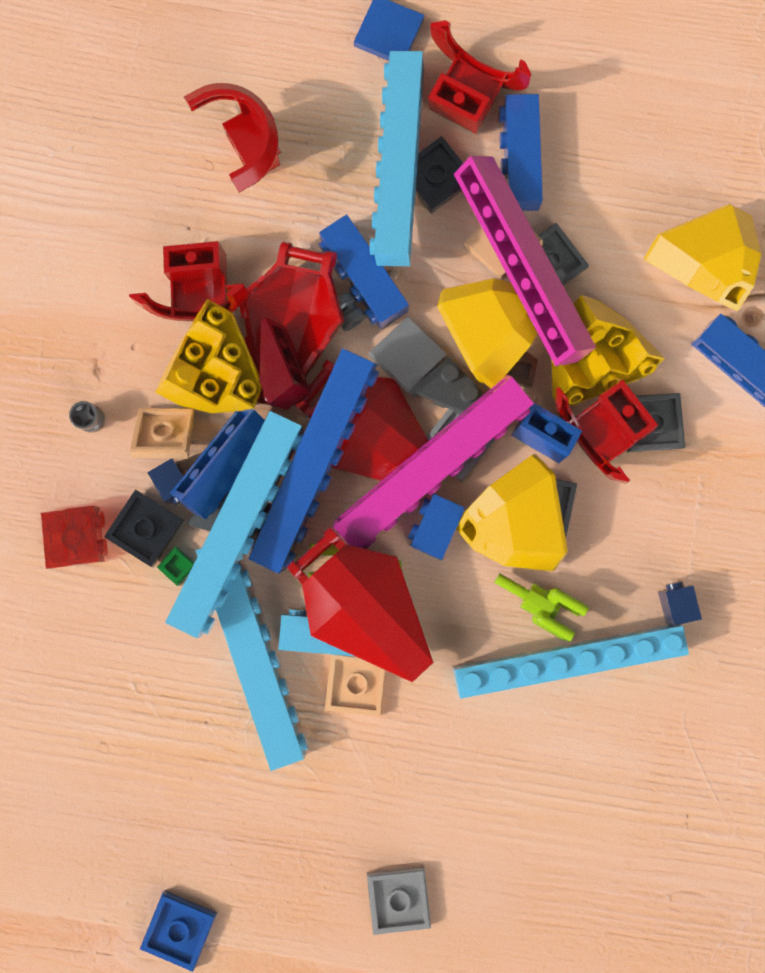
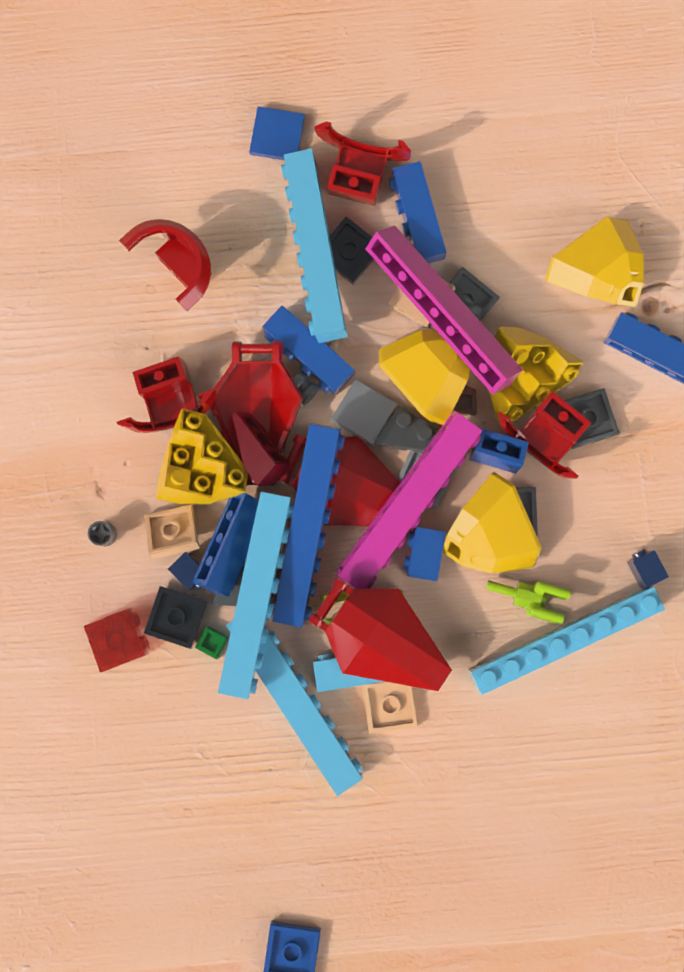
camera: 10 degrees left, 0 degrees up
(398, 900) = (472, 878): light grey tile -> none

